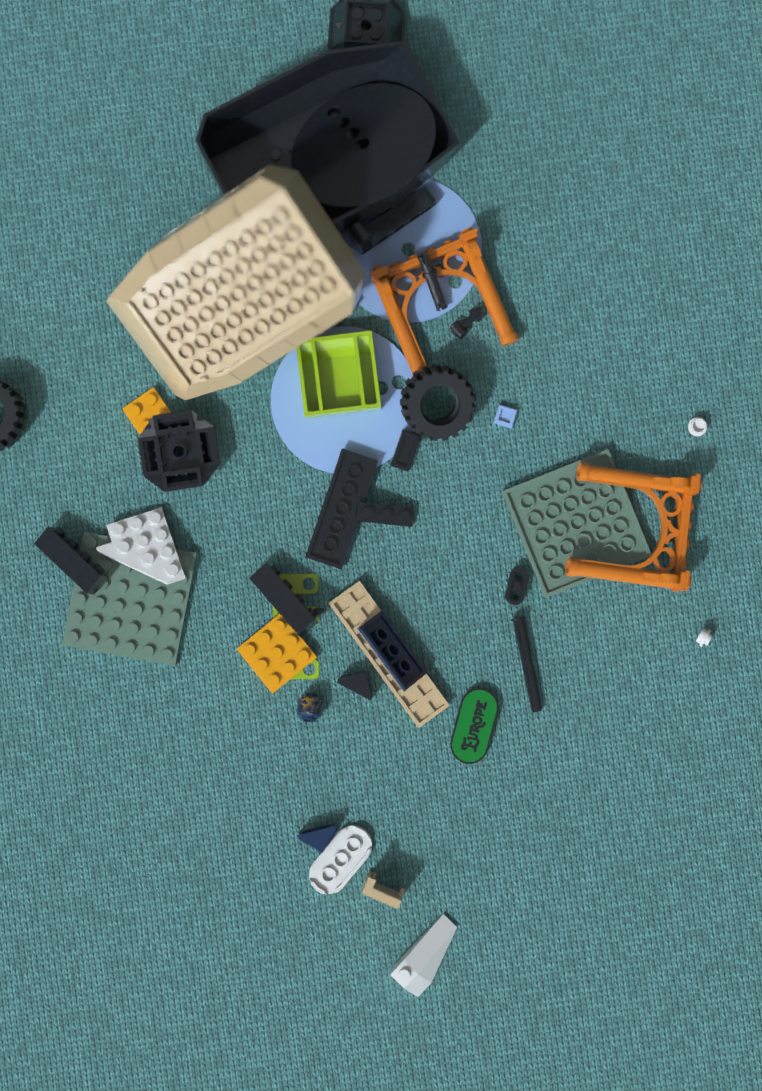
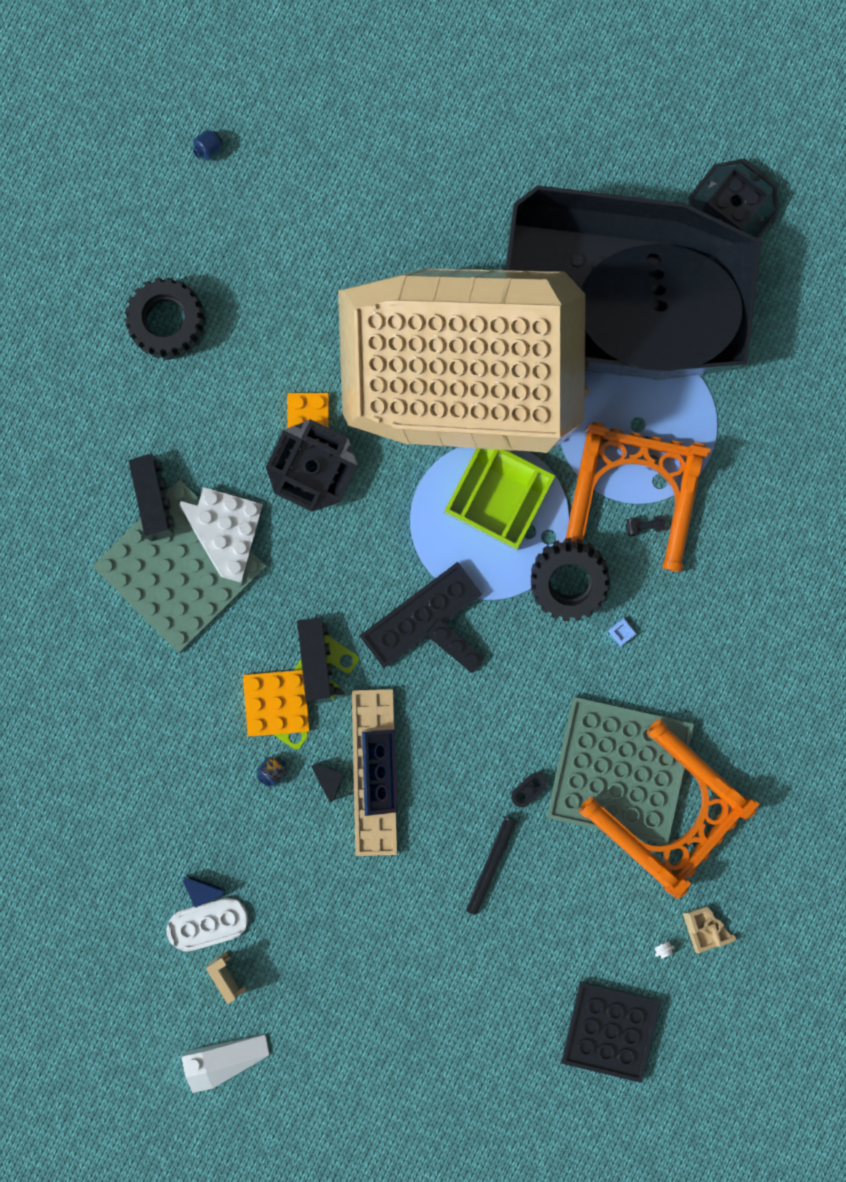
camera: 30 degrees right, 0 degrees up
(368, 236) = (608, 389): black beam -> none
(405, 450) = (512, 601): black tile -> none
(429, 274) = (640, 461): black pin -> none
(474, 725) = (406, 887): green tile -> none
(697, 426) = (786, 758): white plate -> none
(706, 728) = (610, 1031): none -> black plate
(726, 600) = (706, 930): none -> tan slope

